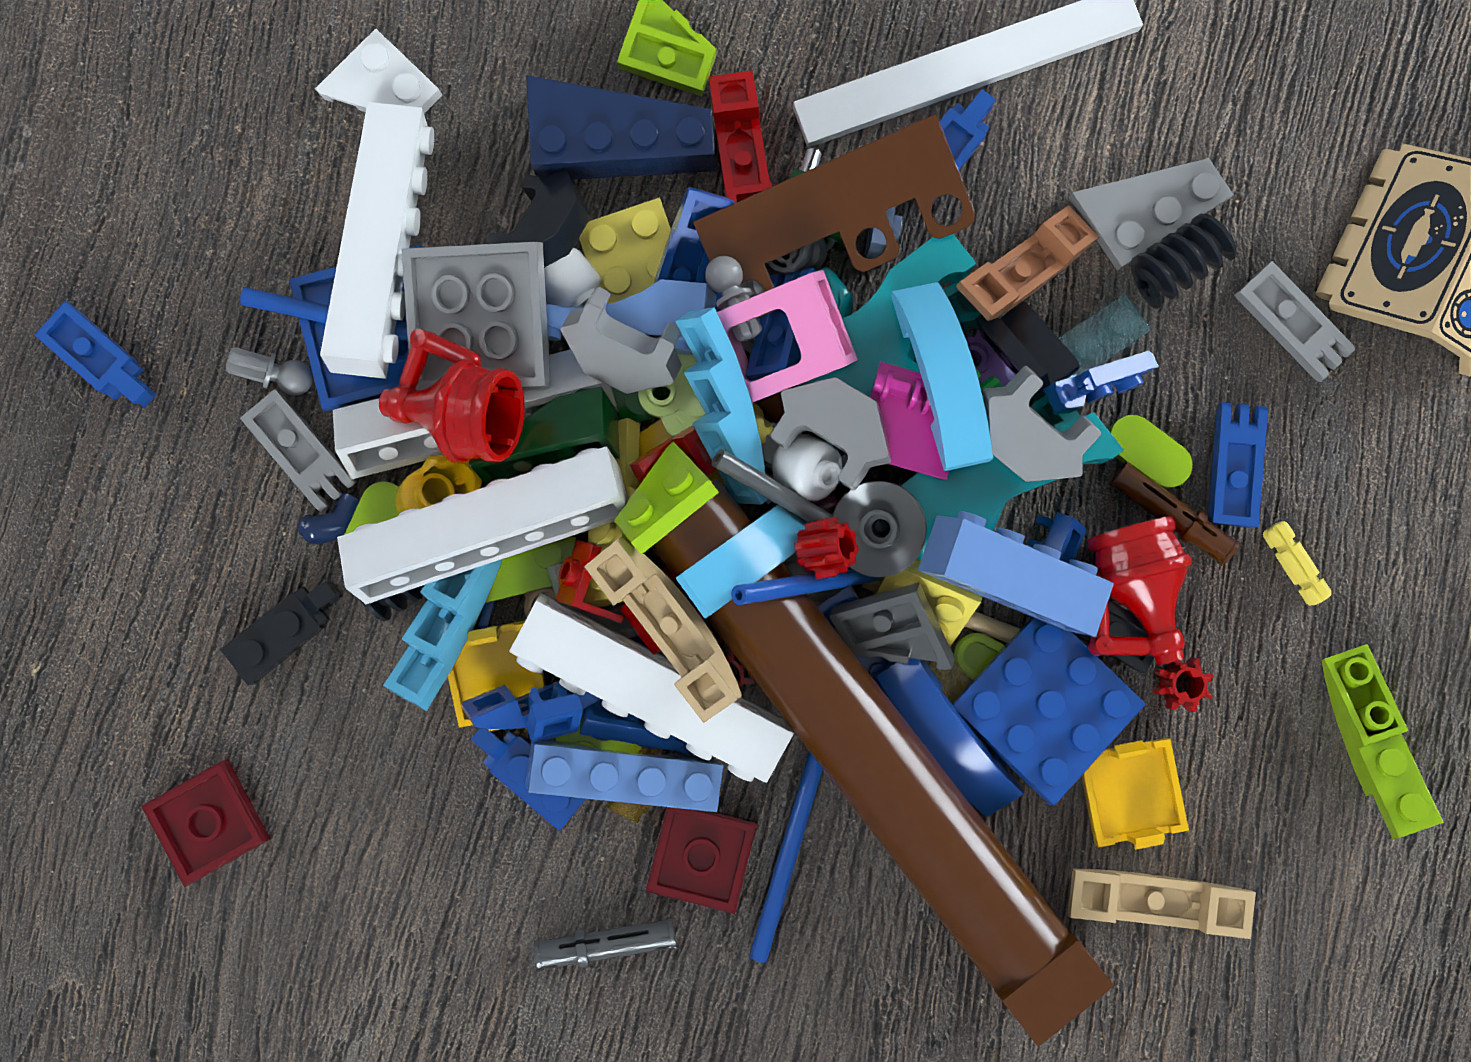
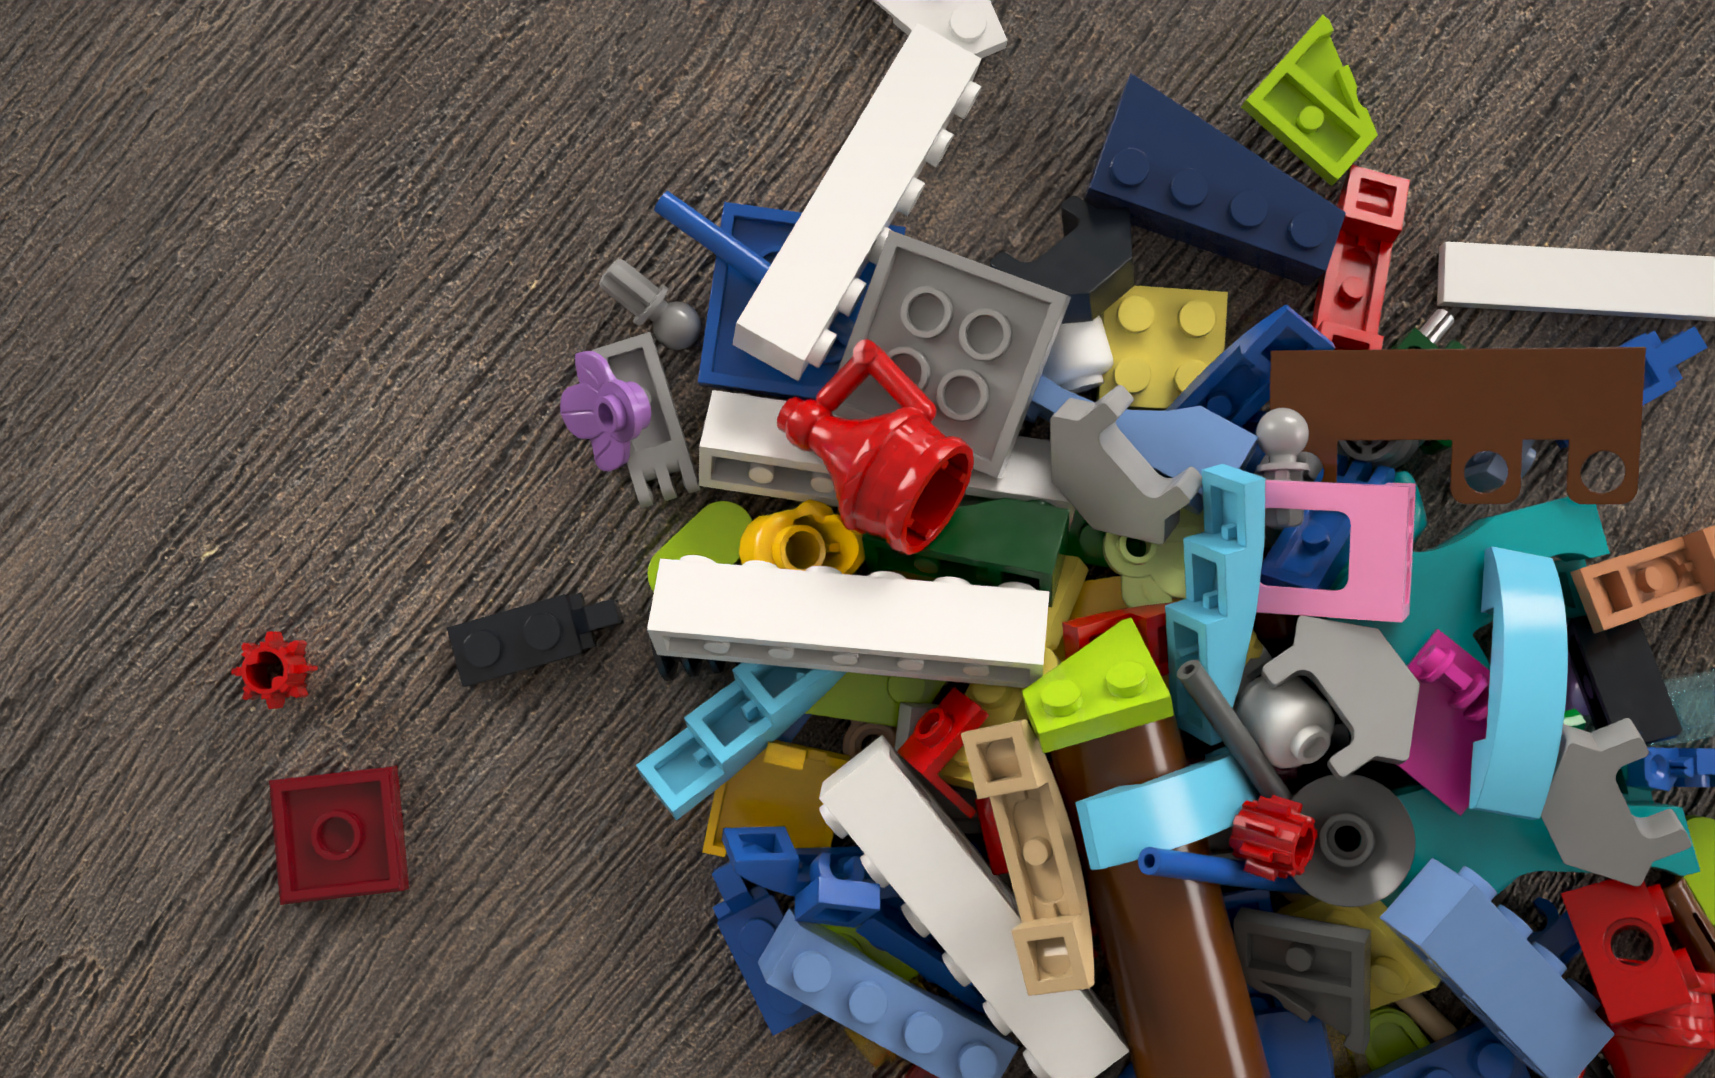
camera: 25 degrees right, 0 degrees up
(94, 355) = (443, 194): blue hinge -> none
(105, 717) = (255, 666): none -> red gear
(265, 455) = (604, 410): none -> medium lavender plate
(329, 526) = (646, 530): dark blue arm -> none
(1115, 547) = (1628, 991): none -> red brick

